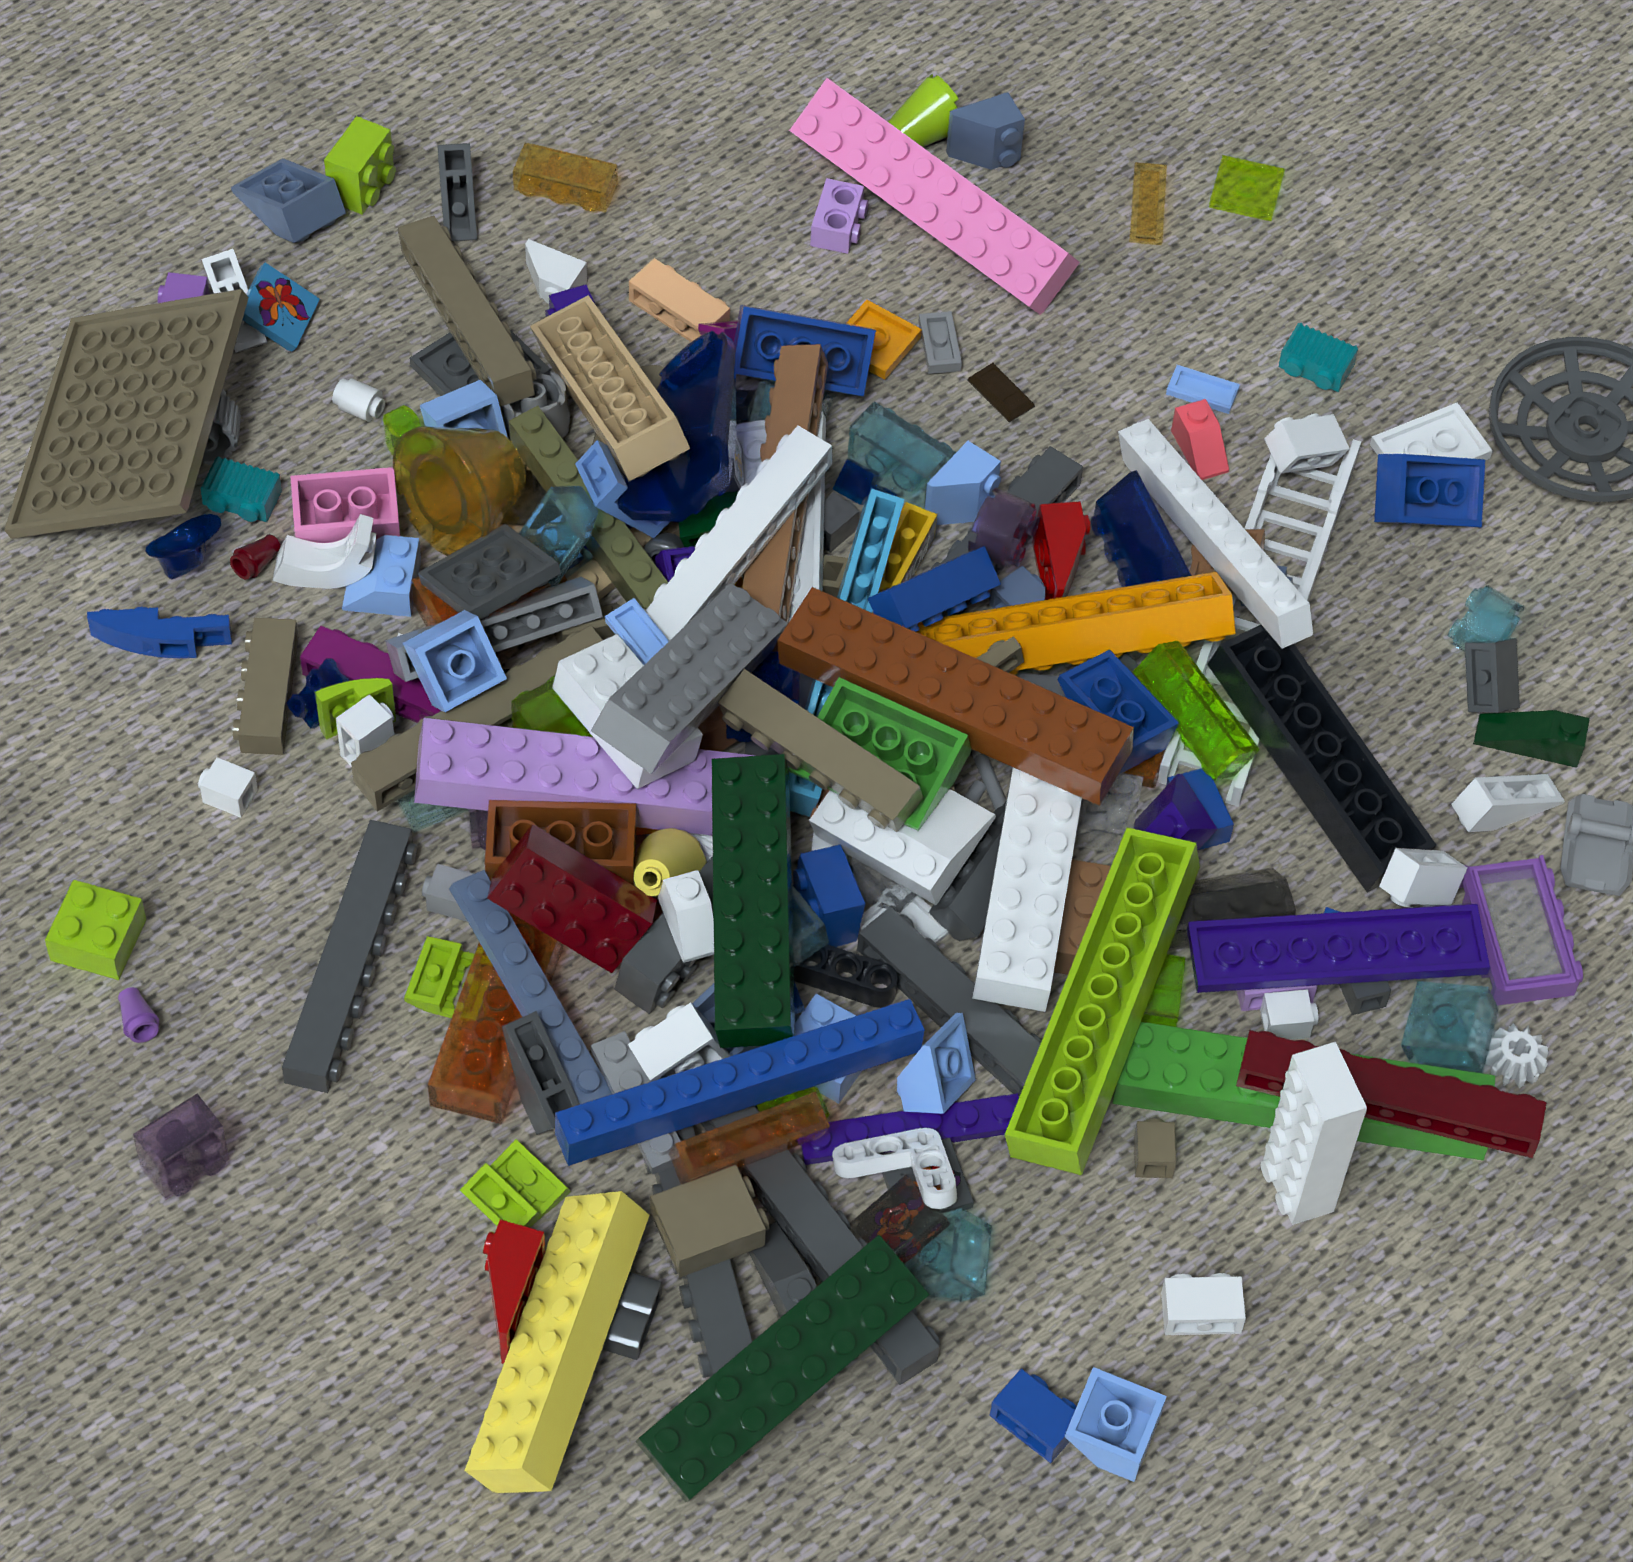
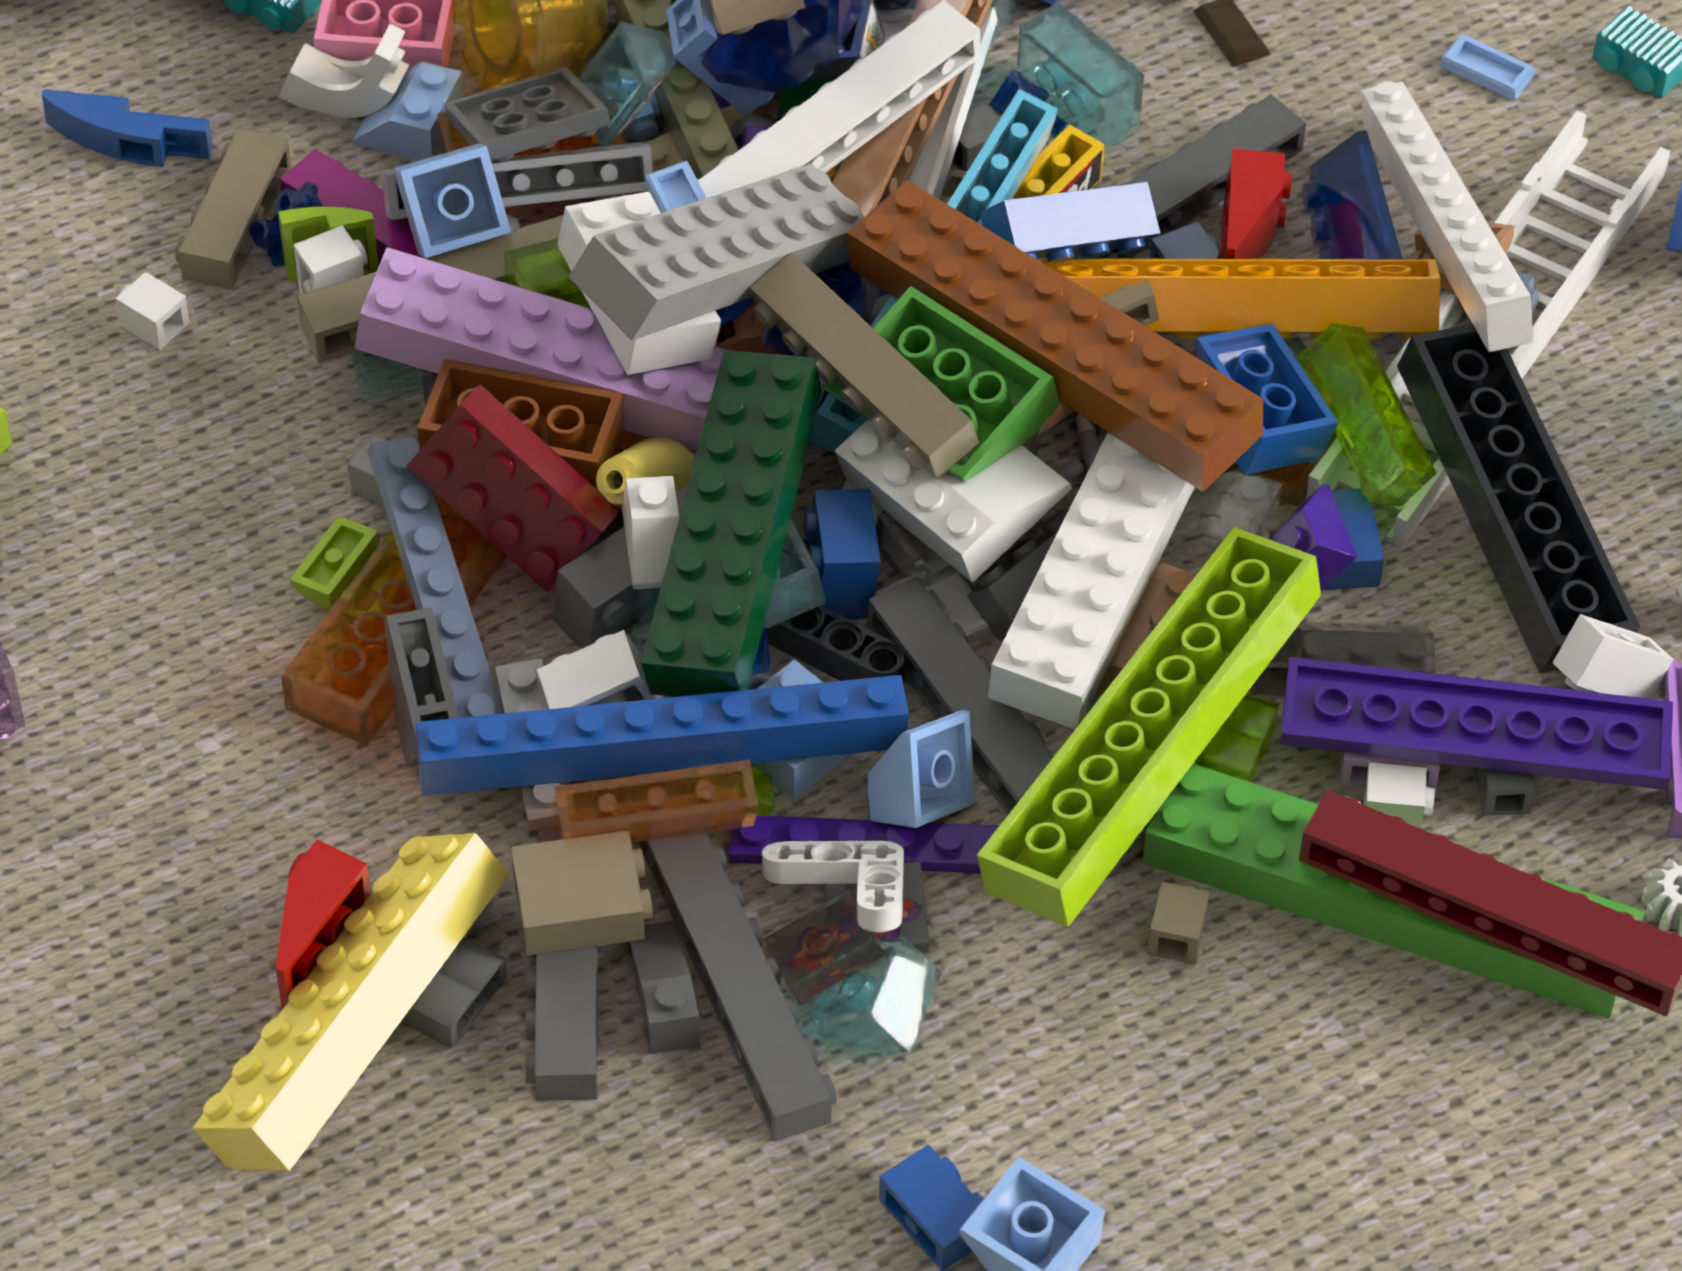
camera: 15 degrees right, 5 degrees down
(184, 545) = (182, 43): clear blue piece -> none
(252, 558) = (263, 66): dark red cone -> none
(348, 957) = (237, 523): dark grey brick -> none
(515, 1188) = (360, 818): lime slope -> none
(782, 1368) = (620, 1081): dark green brick -> none
(963, 485) = (1146, 120): light blue slope -> none
(1004, 527) = (1180, 167): clear purple brick -> none
(1200, 439) = (1466, 119): coral slope -> none
(1203, 1305) = (1189, 1118): white brick -> none
(1306, 443) = (1597, 139): white brick -> none
(1313, 1133) = (1370, 919): white brick -> none
(1450, 1026) = (1603, 842): clear light blue brick -> none

